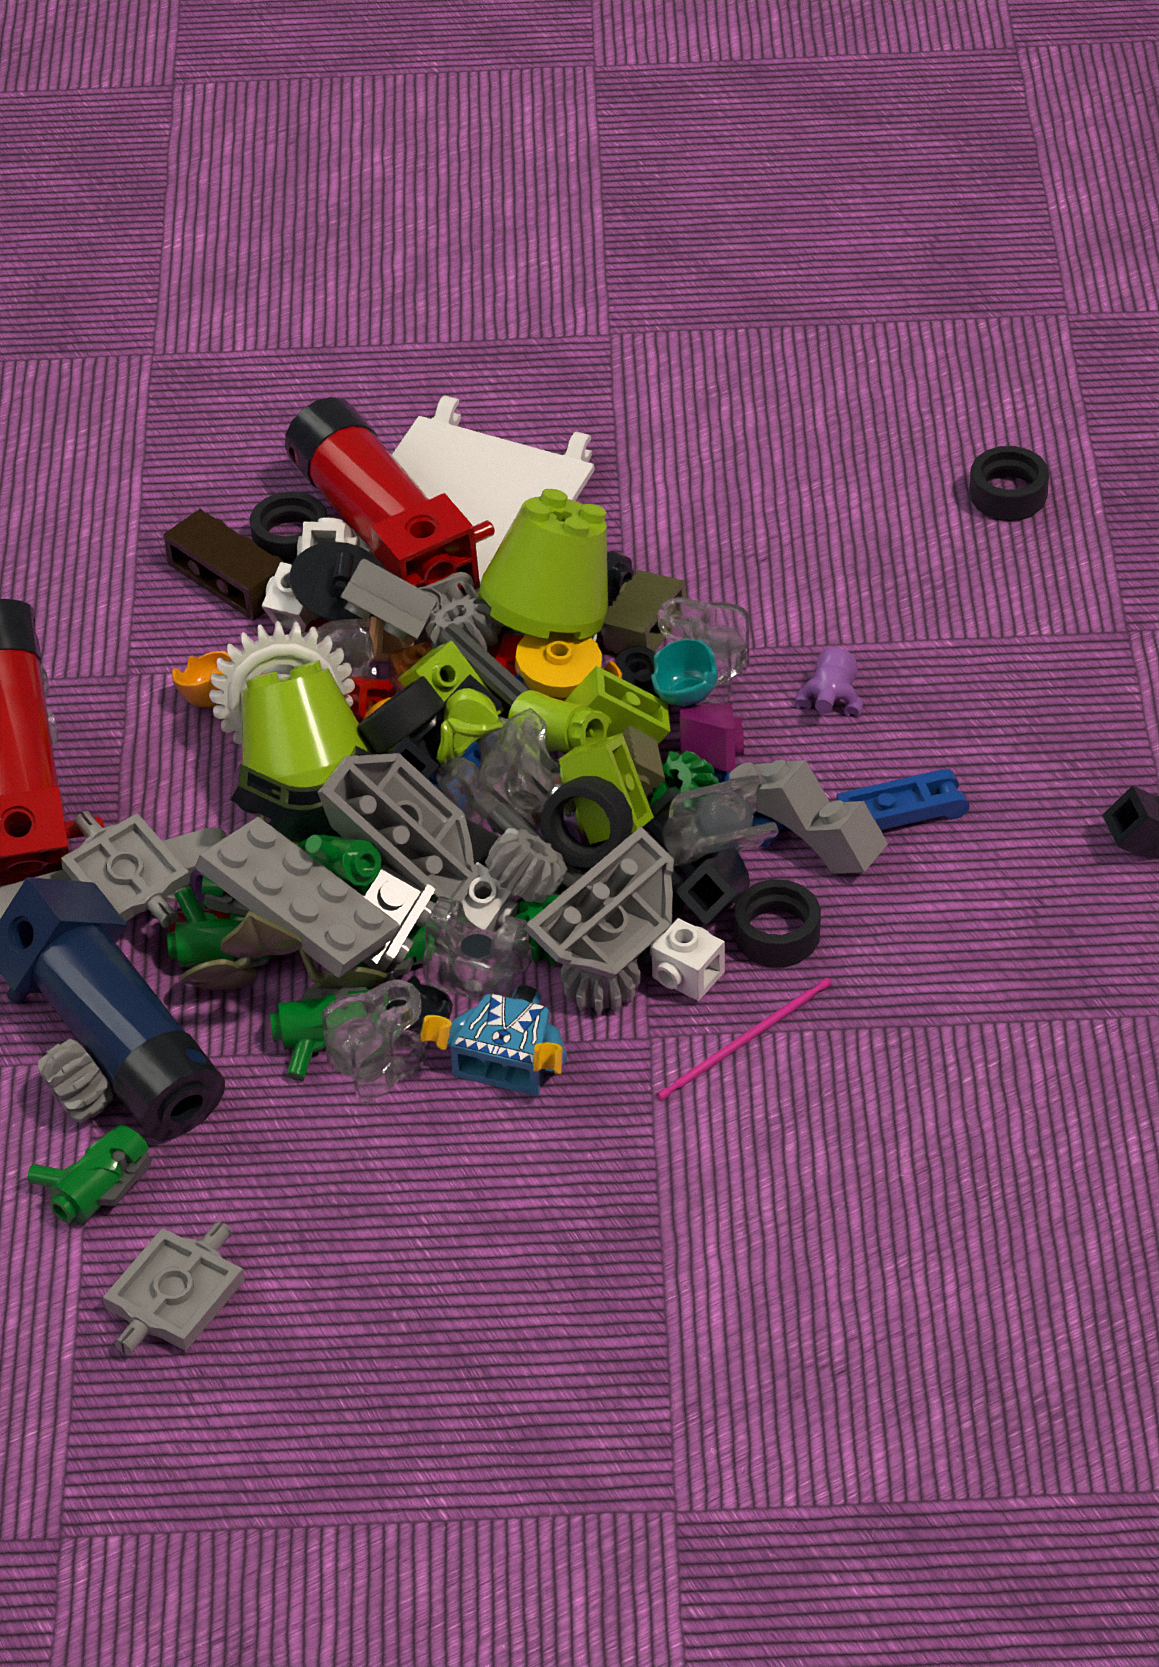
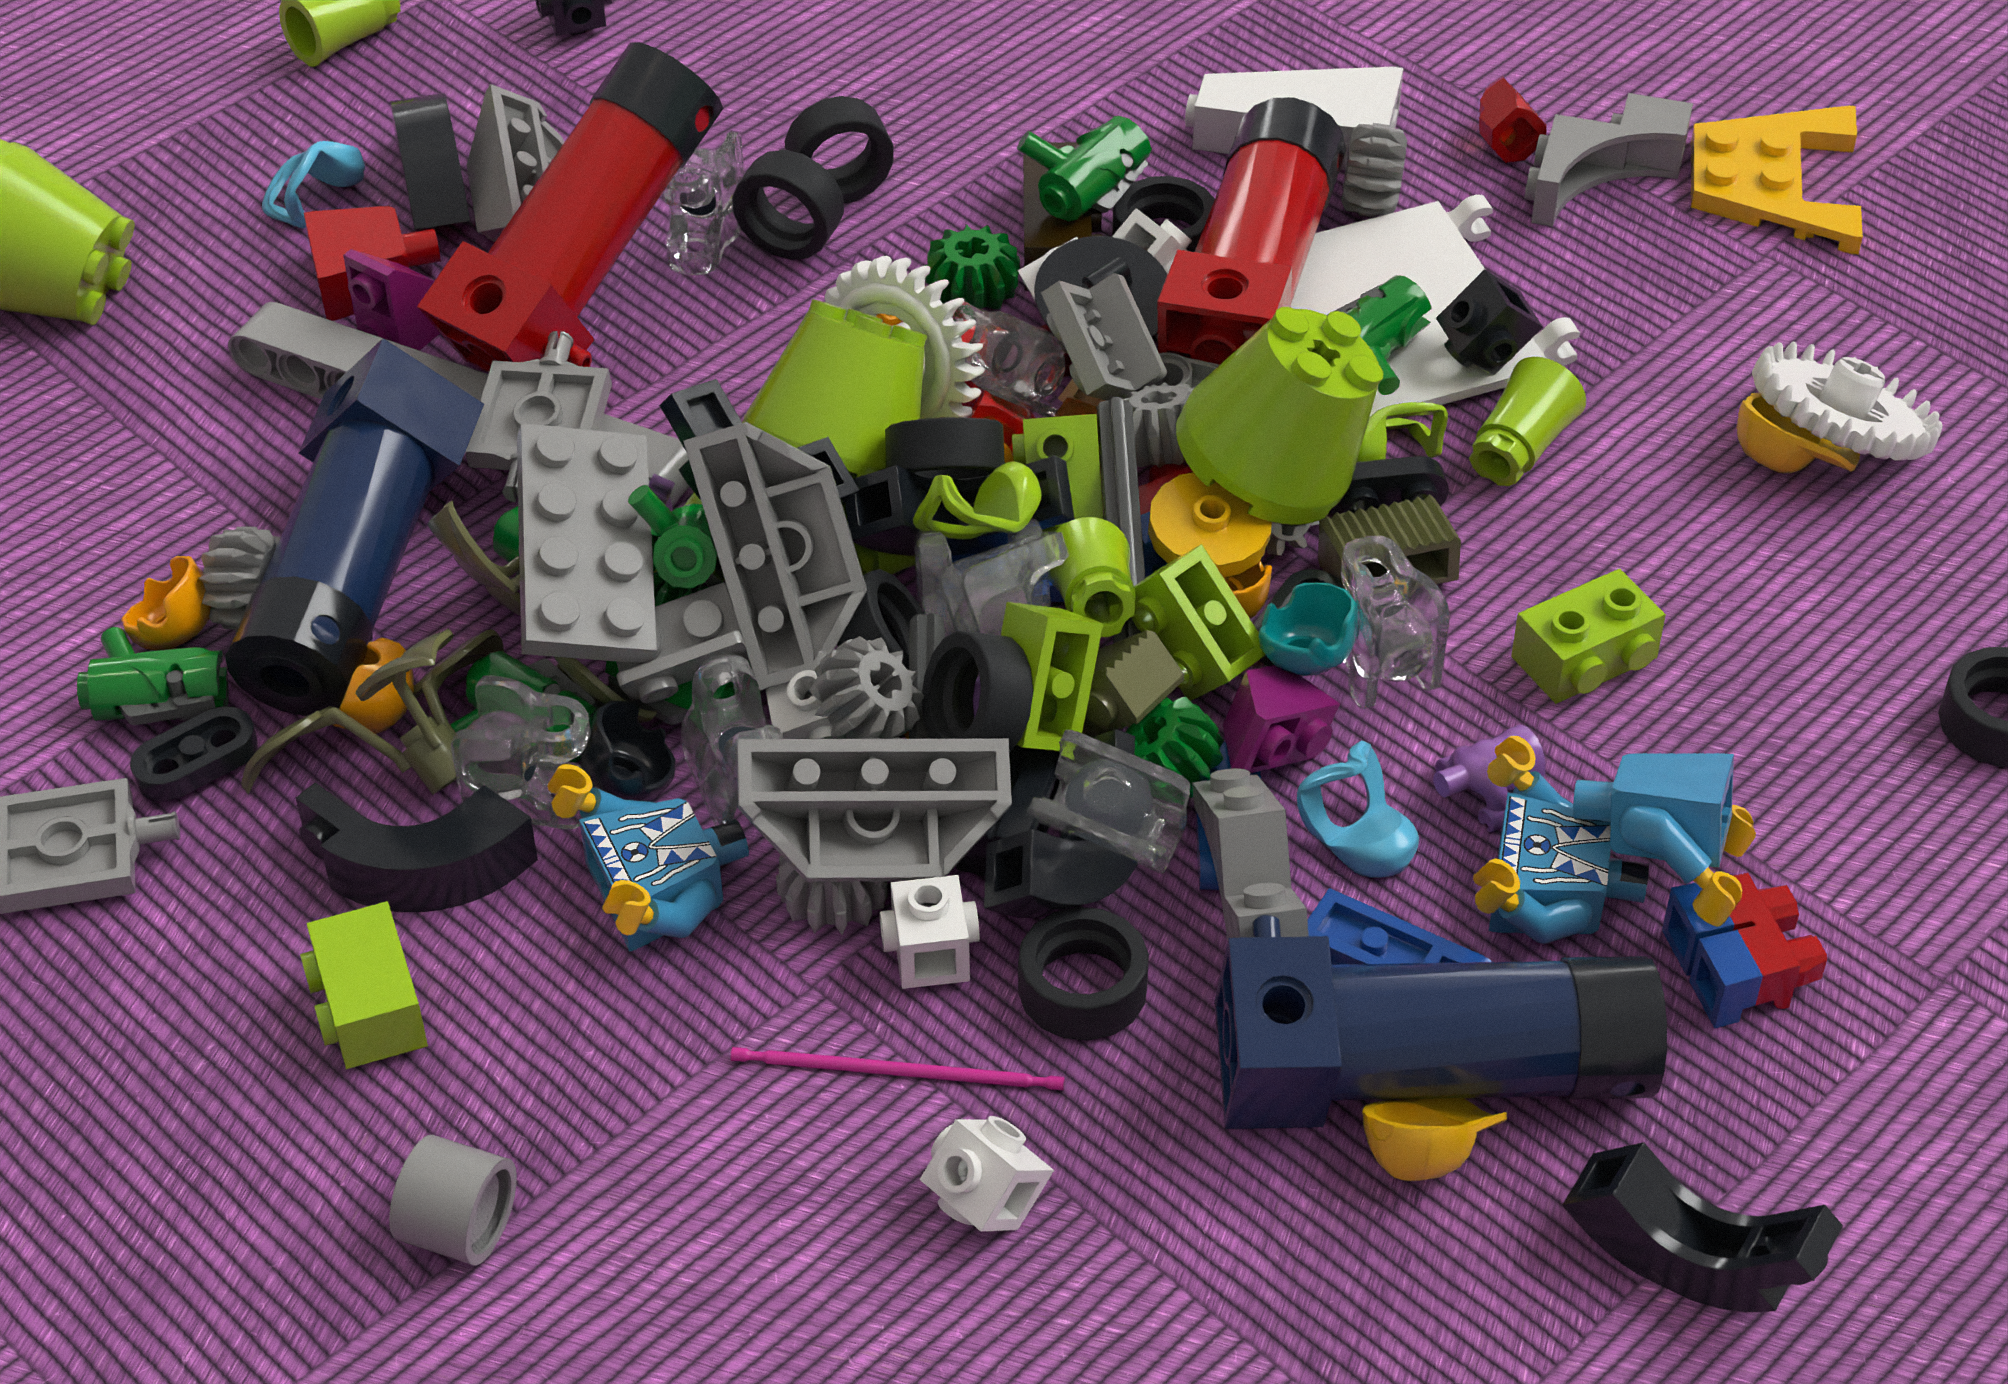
camera: 45 degrees right, 0 degrees up
(44, 1129) = (170, 608): none -> light orange hair
(62, 609) = (841, 116): none -> black tyre
(93, 678) = (800, 178): none -> black tyre
(172, 1194) = (194, 753): none -> black plate
(220, 622) = (976, 264): none -> green gear
(239, 518) = (1092, 172): none -> green piece
(241, 1073) = (386, 705): none -> light orange hair
(257, 427) = (1346, 94): none -> white slope
(304, 1077) = (428, 742): none -> olive plant
(375, 1147) = (419, 865): none -> black arch
(379, 412) = (1374, 170): none -> light grey gear
(398, 345) = (1509, 122): none -> red rock
(452, 1209) = (365, 984): none -> lime brick
(476, 313) = (1587, 152): none -> light grey arch
(489, 497) = (1389, 320): none -> green piece
(552, 460) = (1488, 323): none -> black brick
(553, 294) = (1753, 171): none -> yellow wing
(621, 491) = (1527, 418): none -> lime plant
(645, 1258) = (452, 1199): none -> light grey piece
(756, 420) = (1781, 444): none -> yellow cap
(765, 382) = (1846, 403): none -> white gear
(791, 587) = (1588, 636): none -> lime brick
(823, 753) = (1376, 843): none -> medium azure piece
(882, 1043) = (985, 1174): none -> white brick
(912, 704) = (1548, 864): none -> torso
(929, 853) = (1324, 1032): none -> dark blue piece
(961, 630) = (1677, 813): none -> dark azure torso
(1021, 866) = (1424, 1135): none -> yellow cap
(1038, 679) = (1746, 956): none -> hips

